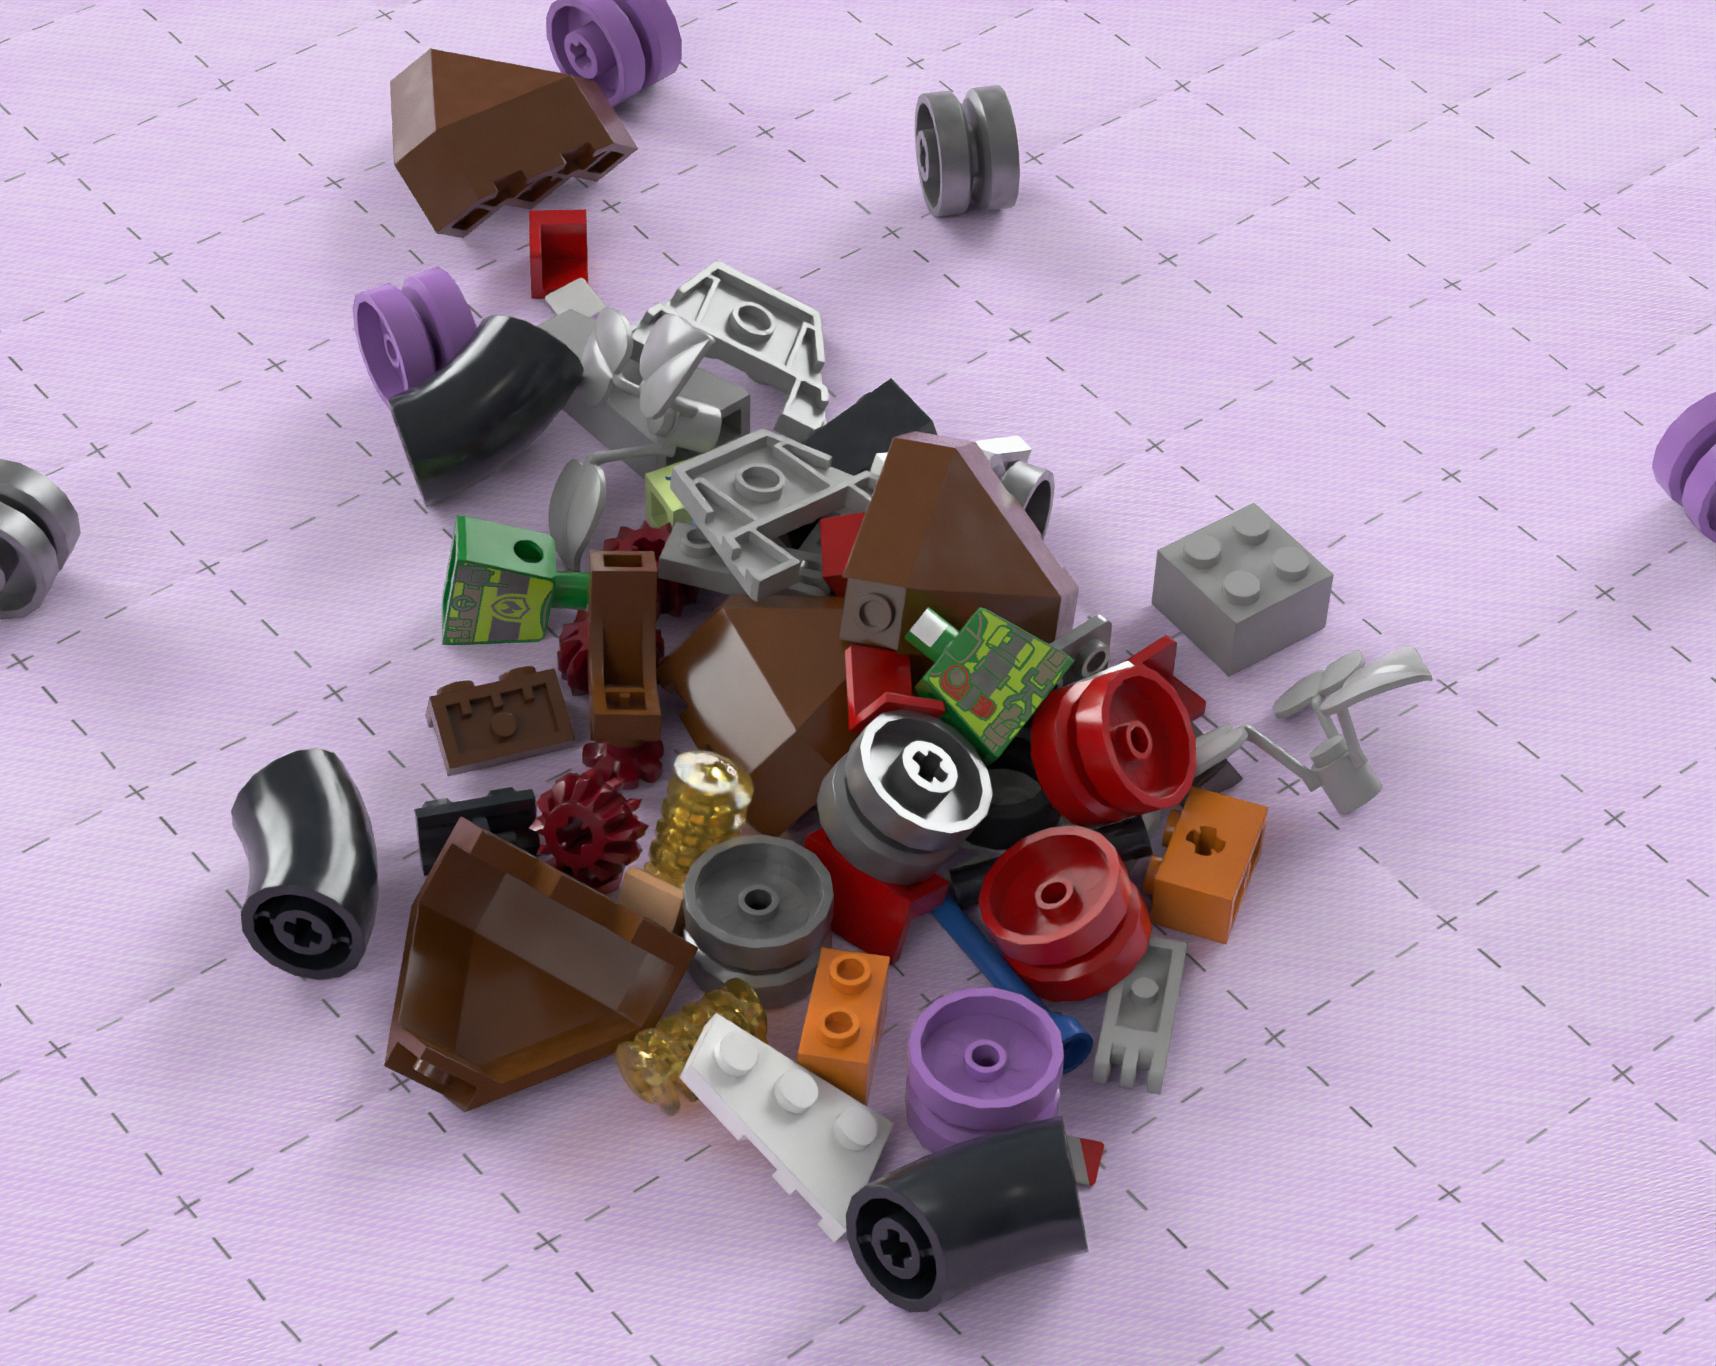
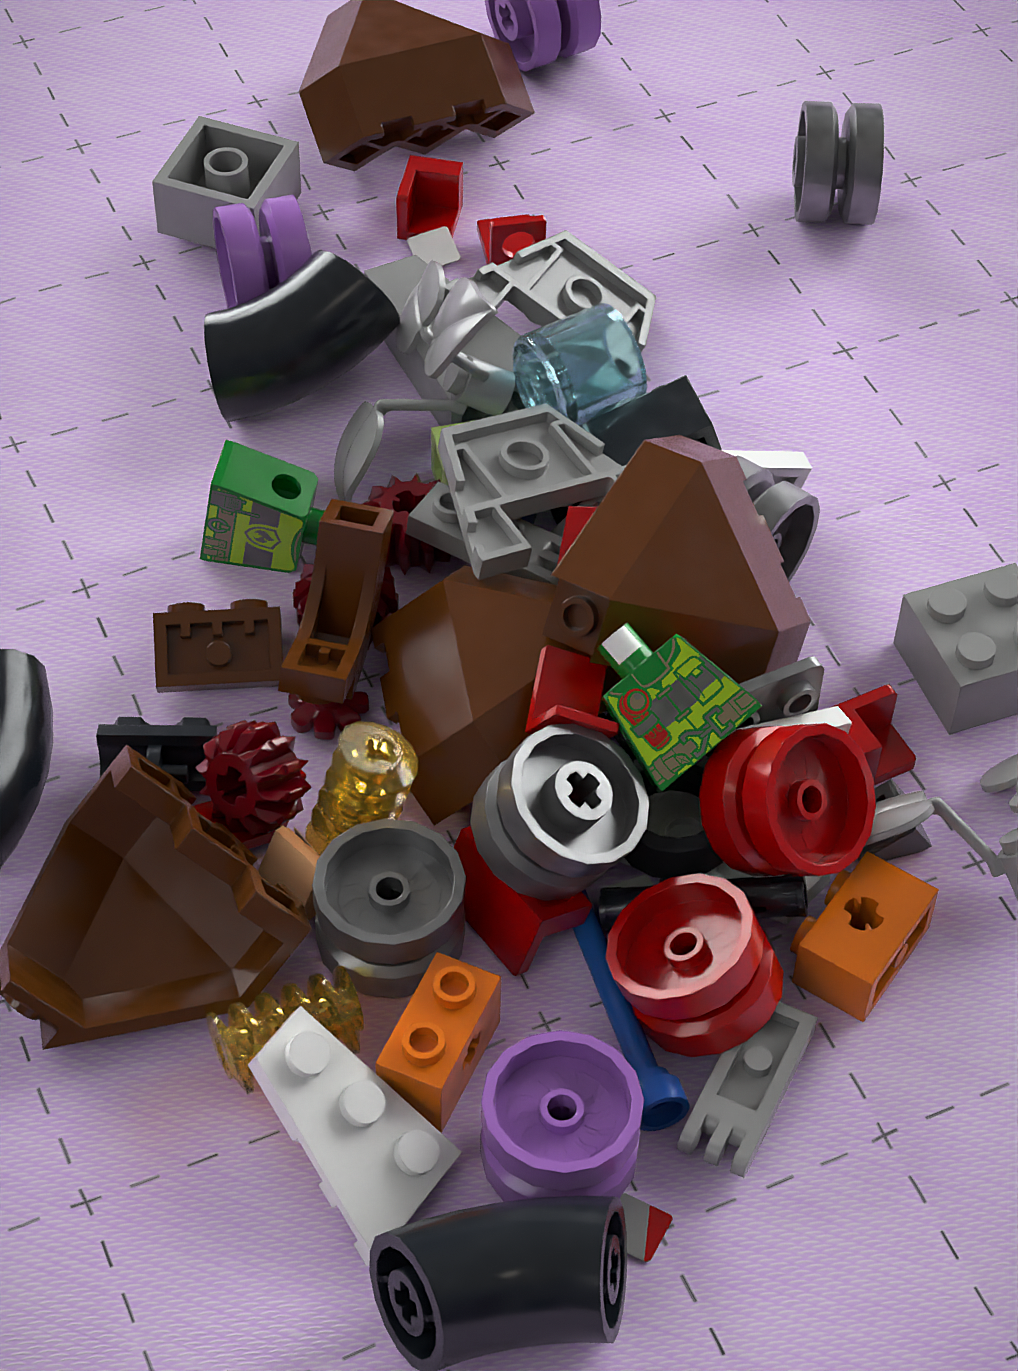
camera: 15 degrees right, 5 degrees up
(334, 258) = (218, 168): none -> light grey brick
(655, 277) = (507, 235): none -> red bracket
(782, 384) = (580, 364): none -> clear light blue piece

